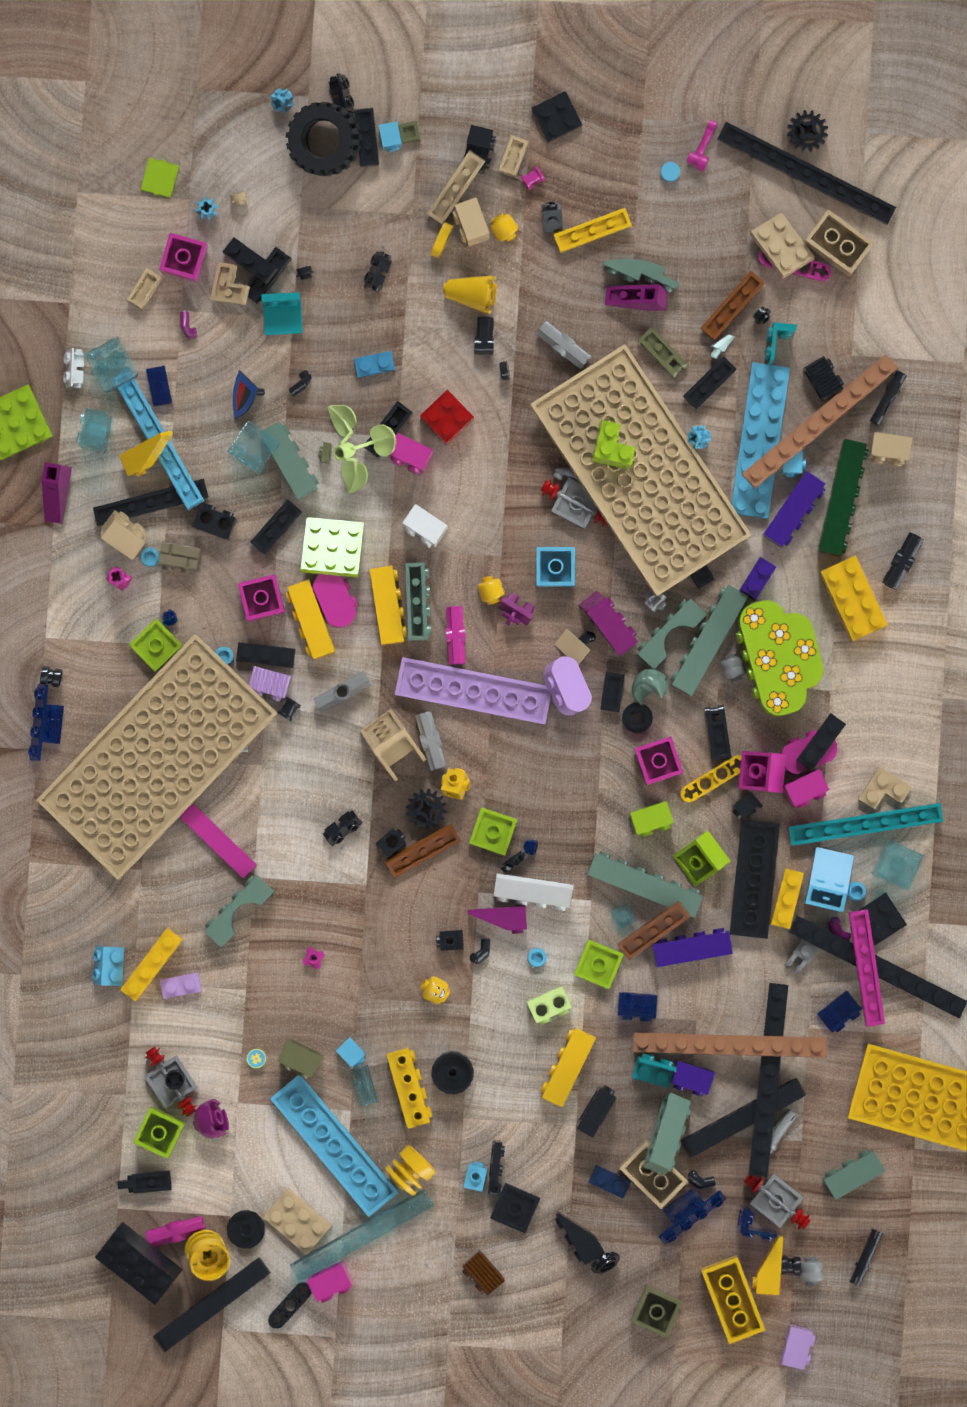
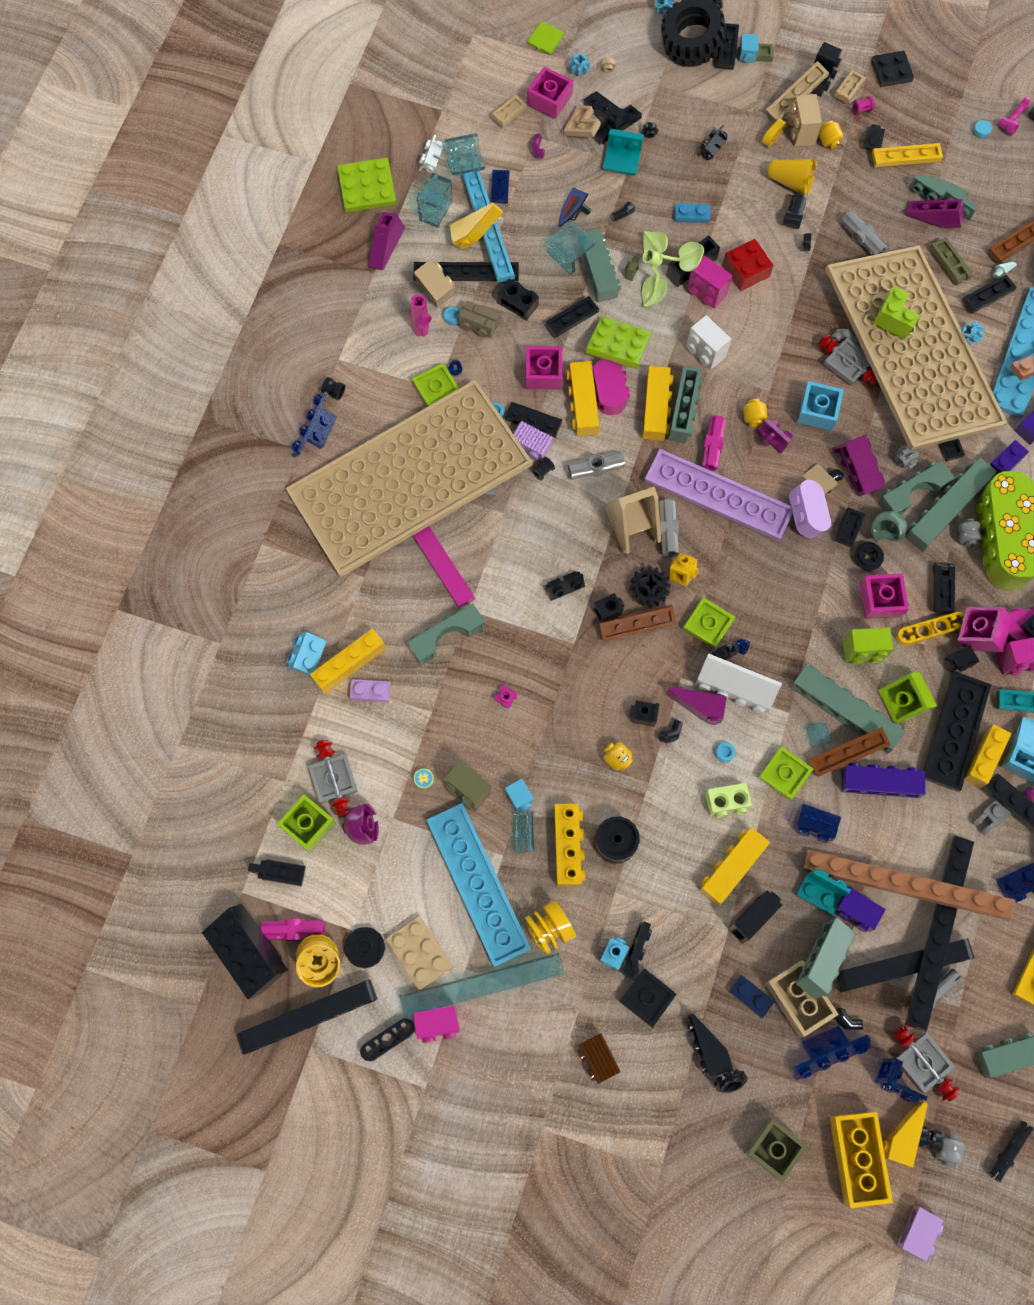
camera: 10 degrees right, 15 degrees down
(173, 1082) = (337, 770): black wheel -> none

